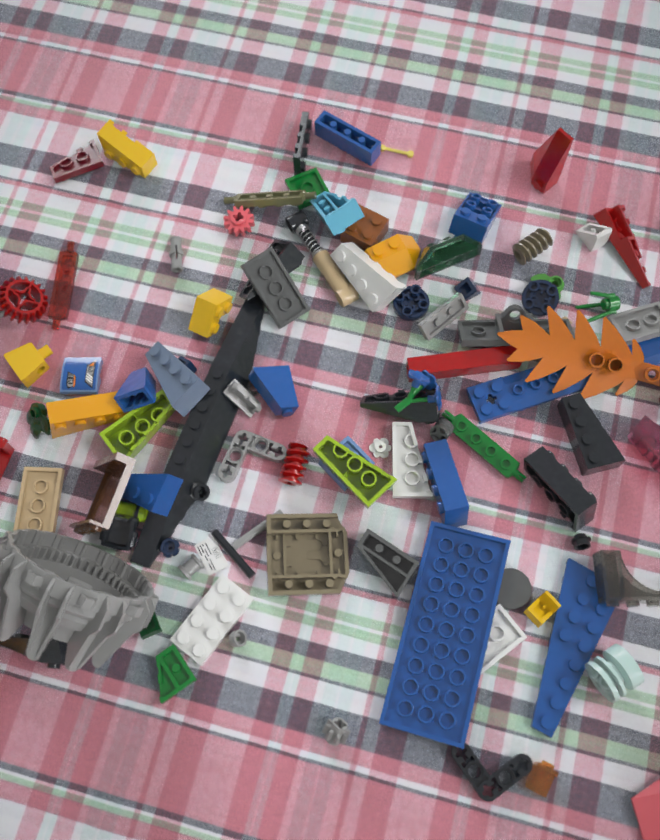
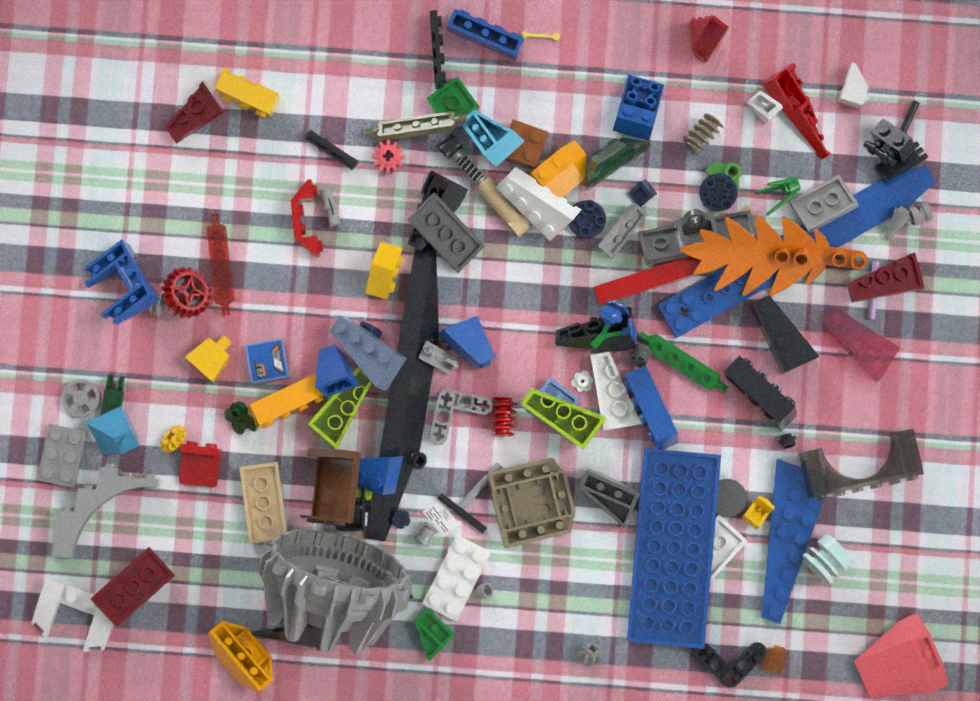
camera: 15 degrees left, 15 degrees up
(153, 240) = (304, 194): none -> red slope
(204, 221) = (330, 149): none -> black pin

